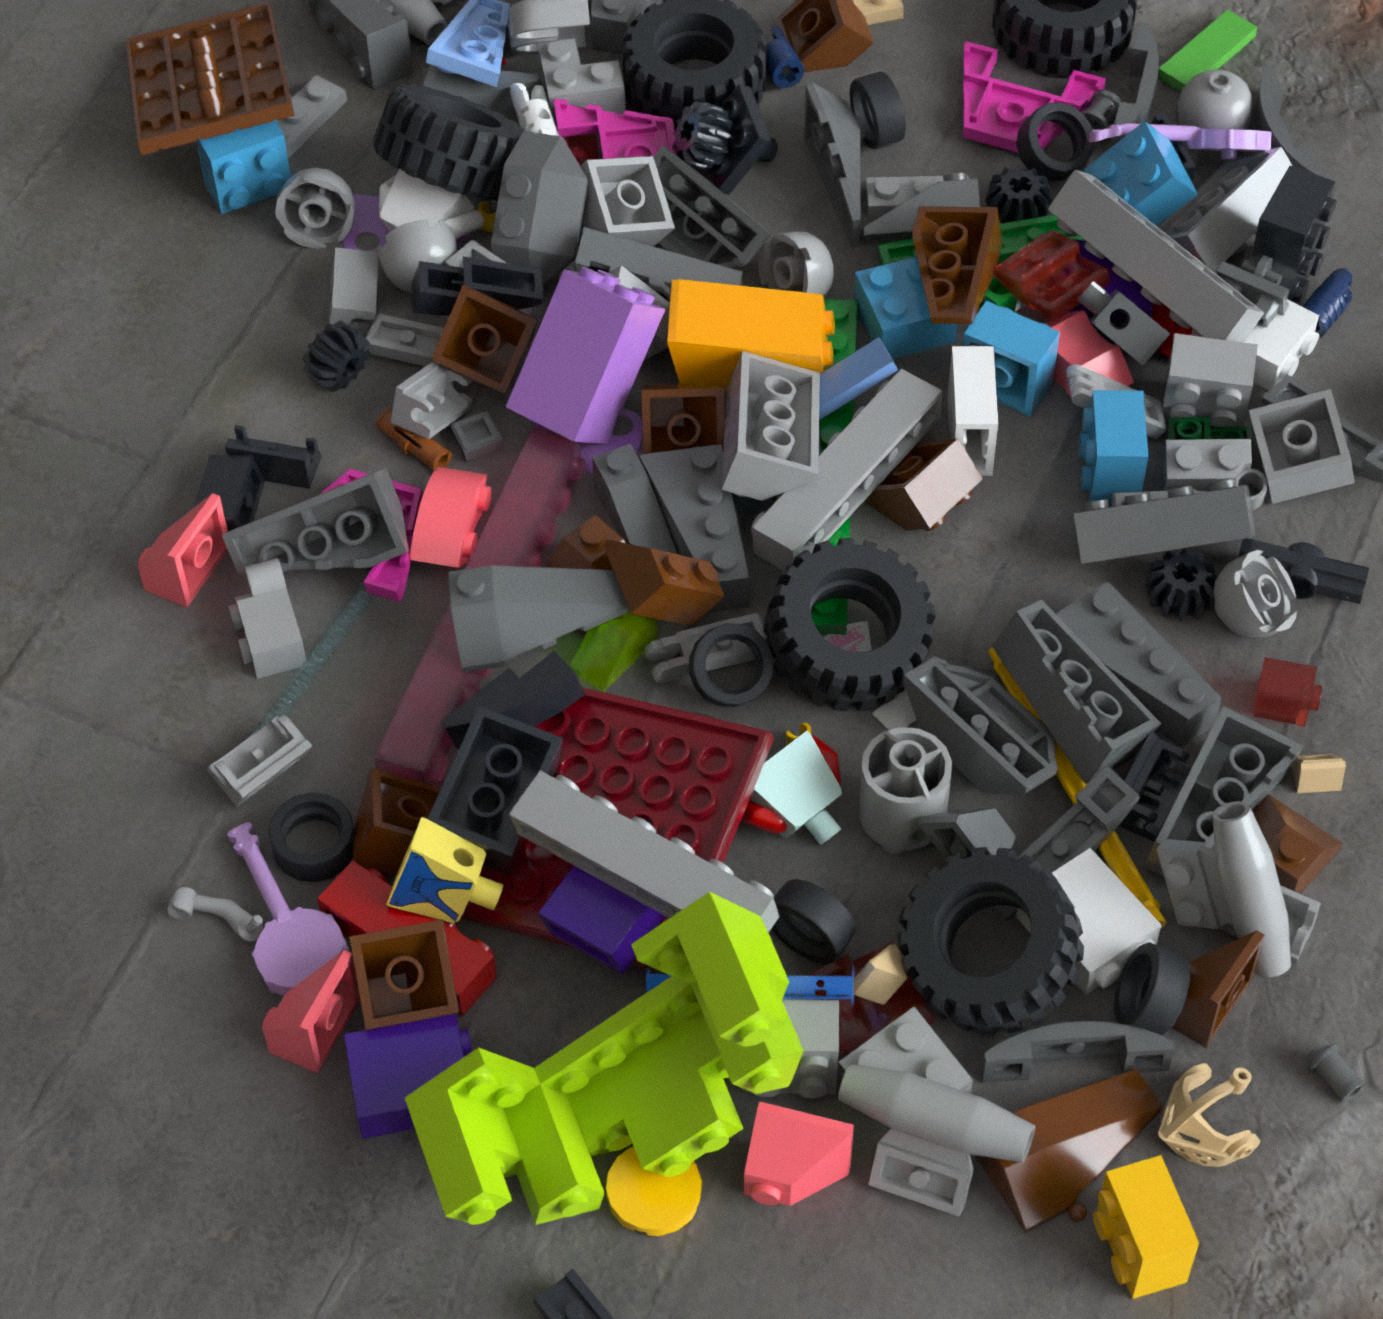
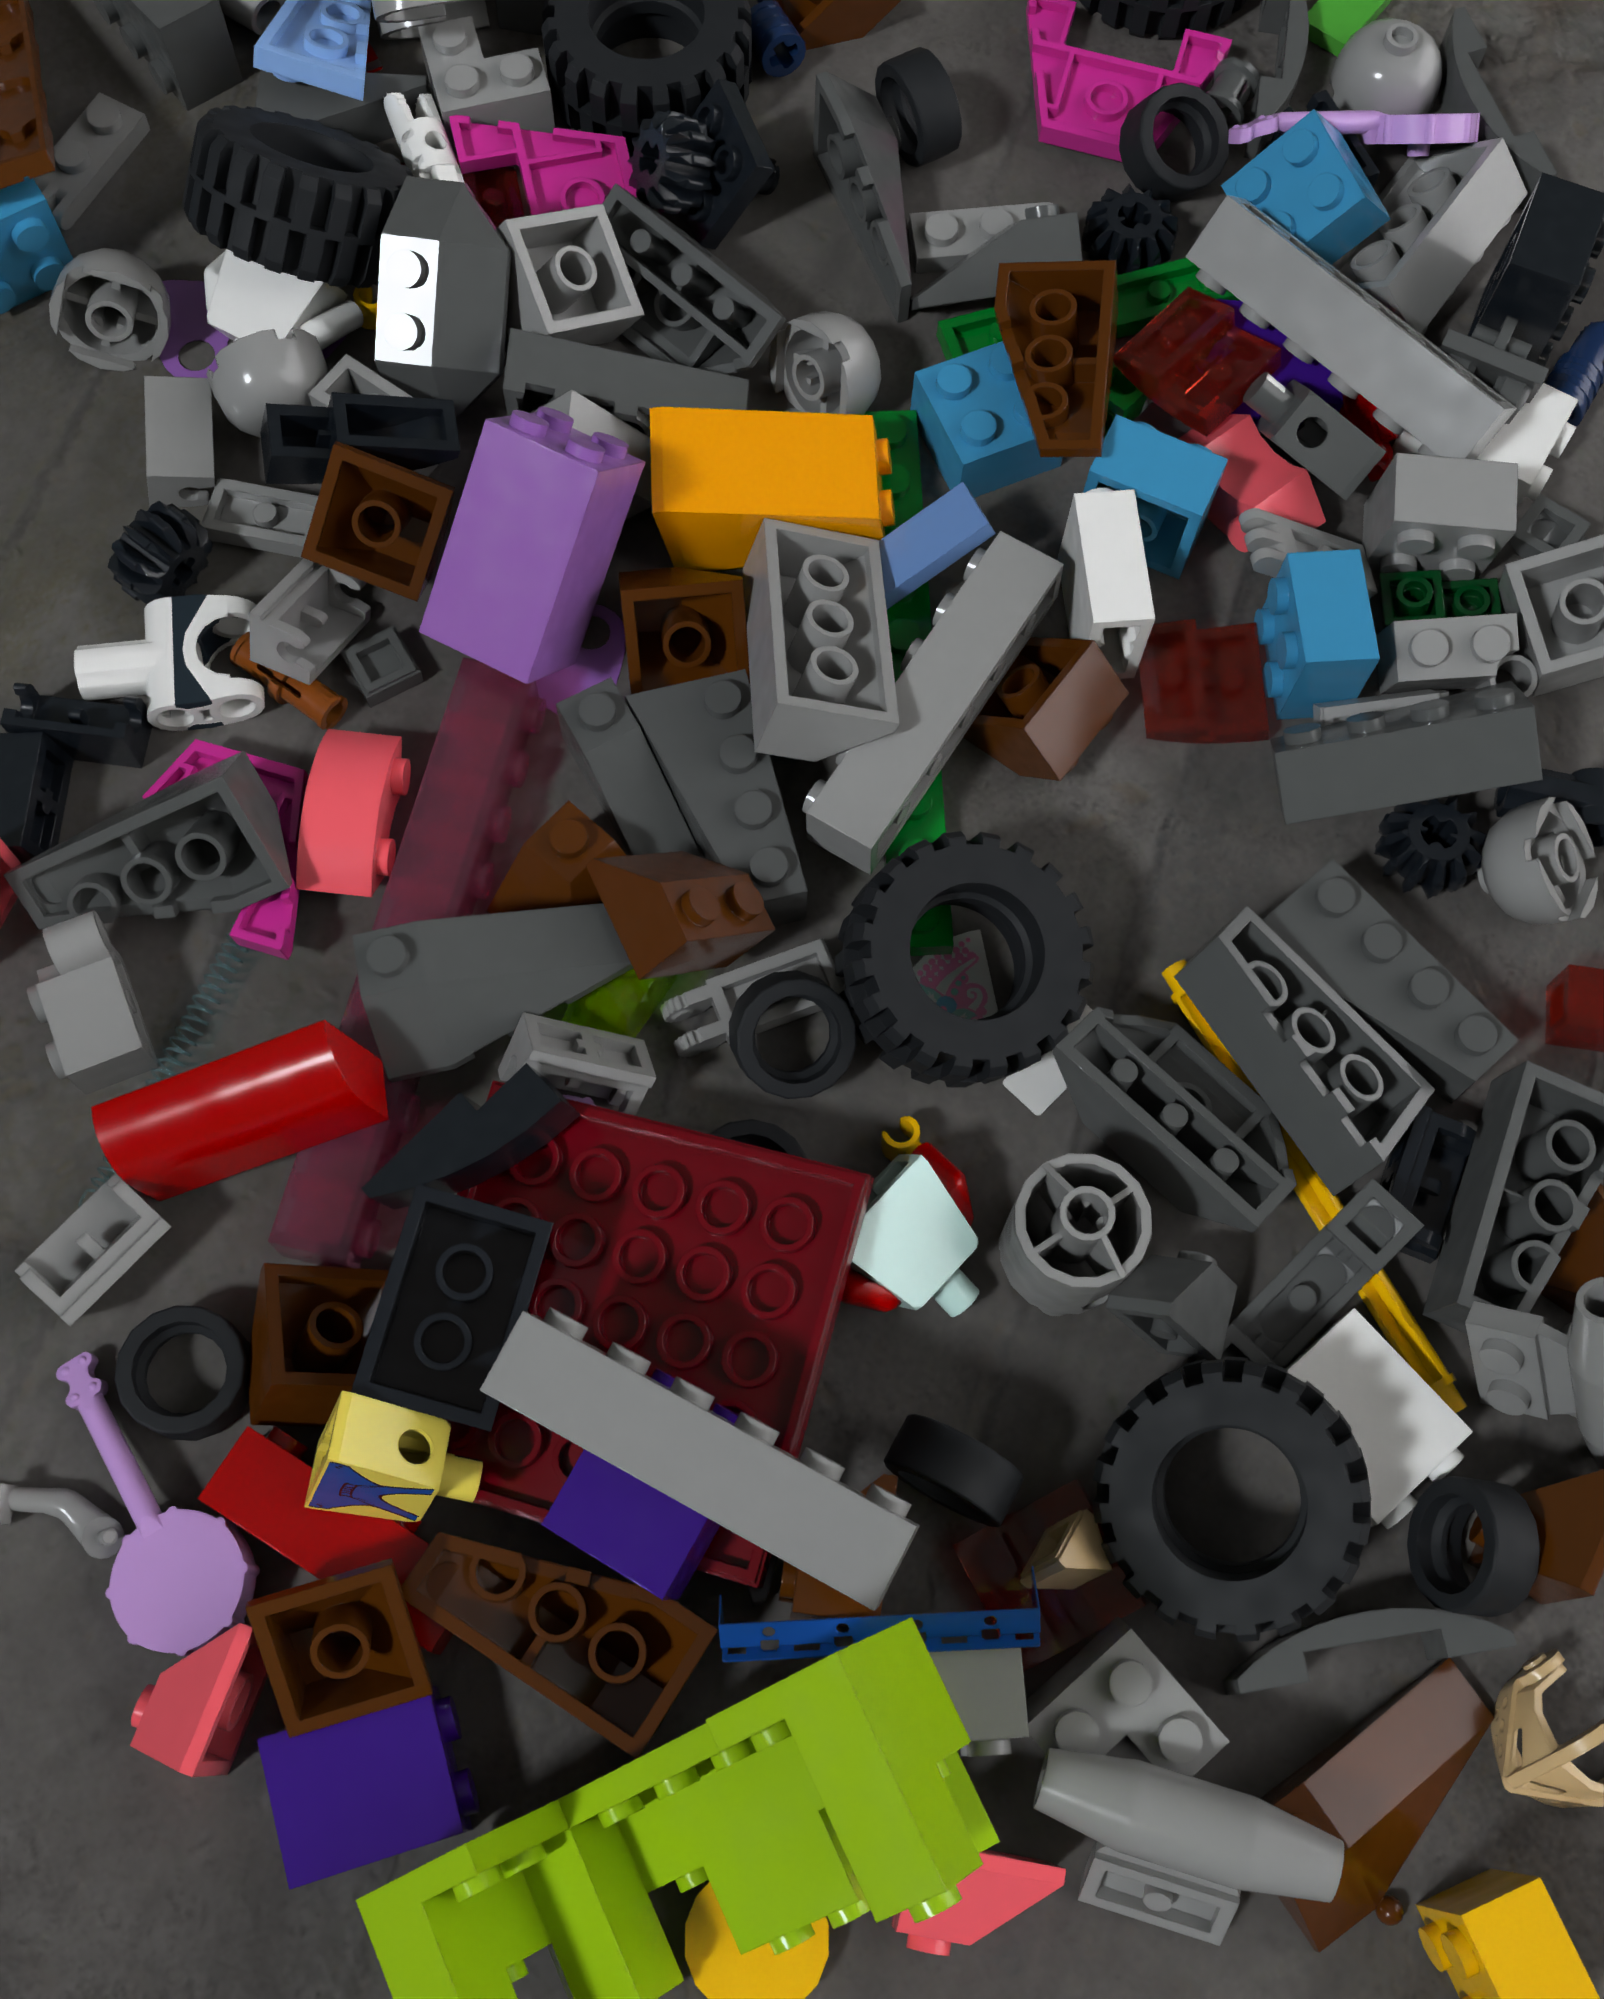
camera: 10 degrees left, 15 degrees up
(340, 424) = (175, 664): none -> white connector
(366, 675) = (242, 1111): none -> red brick
(540, 988) = (568, 1633): none -> reddish brown wedge
(592, 666) = (581, 1060): none -> light grey hinge
(1036, 479) = (1203, 684): none -> clear red slope

